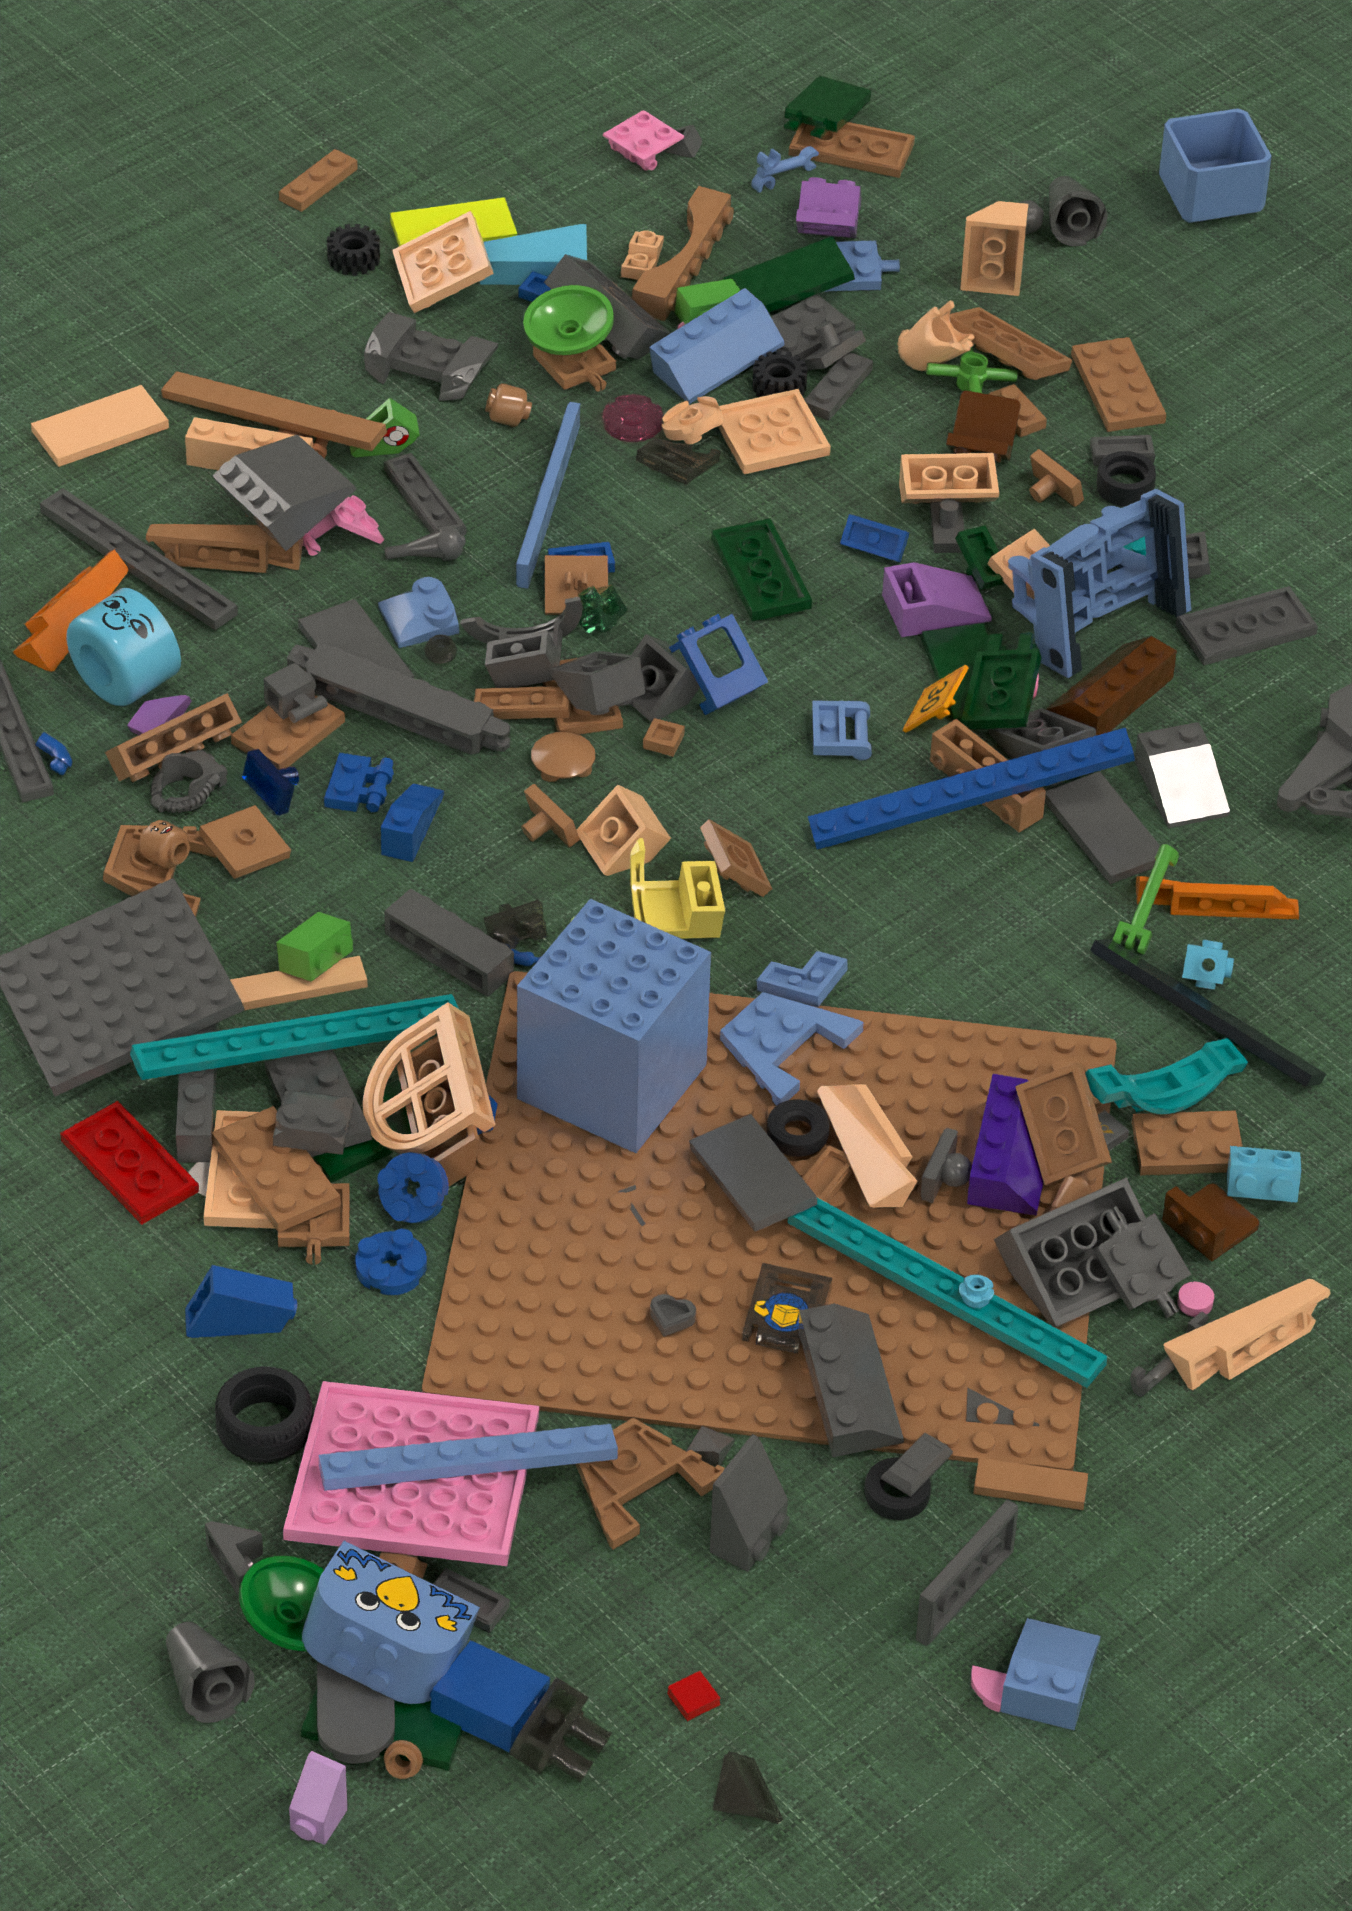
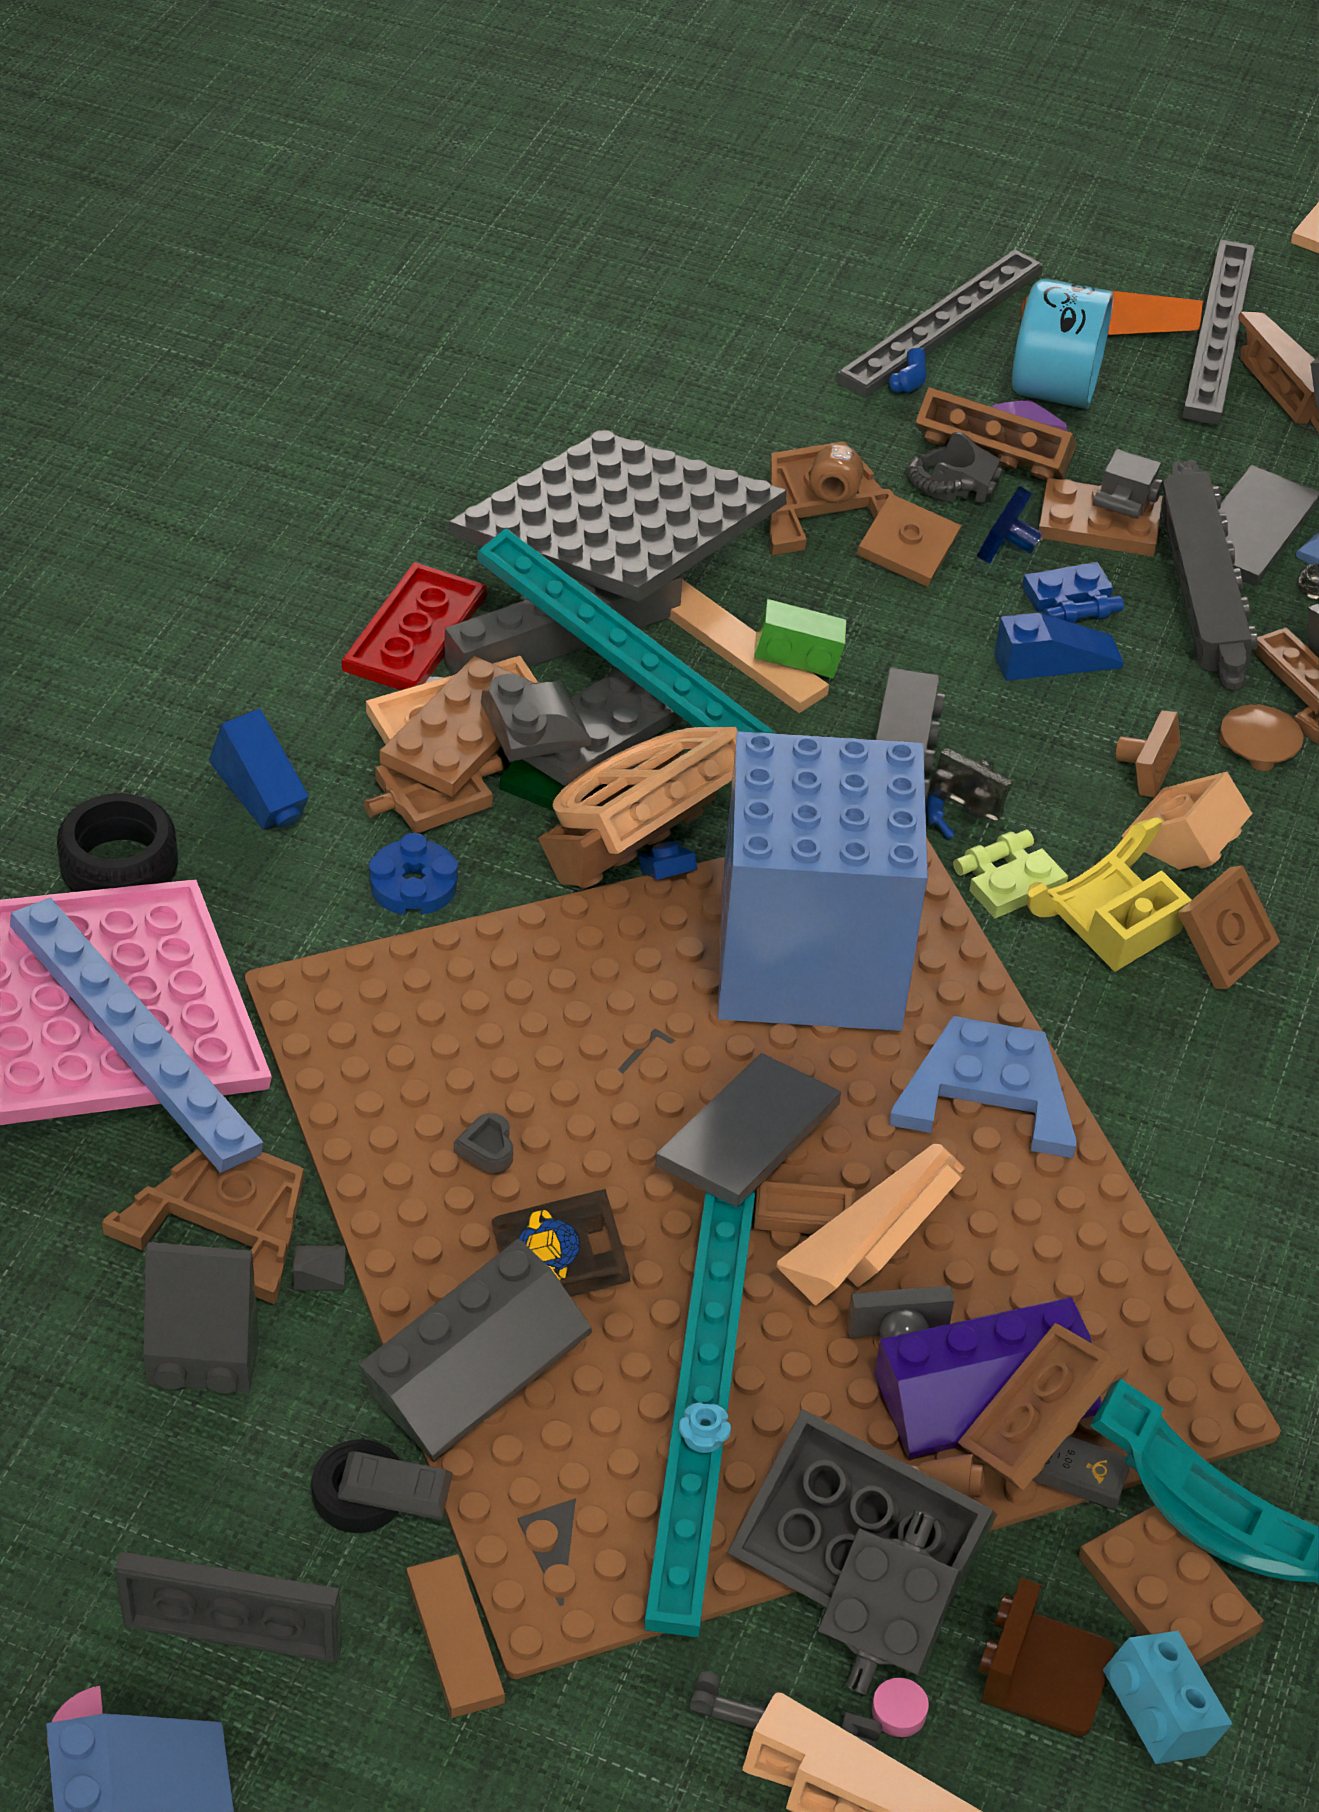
camera: 60 degrees right, 0 degrees up
(430, 1195) = (514, 841): blue plate -> none
(798, 1111) = (863, 1125): black tyre -> none
(803, 985) = (1100, 1076): medium blue plate -> none

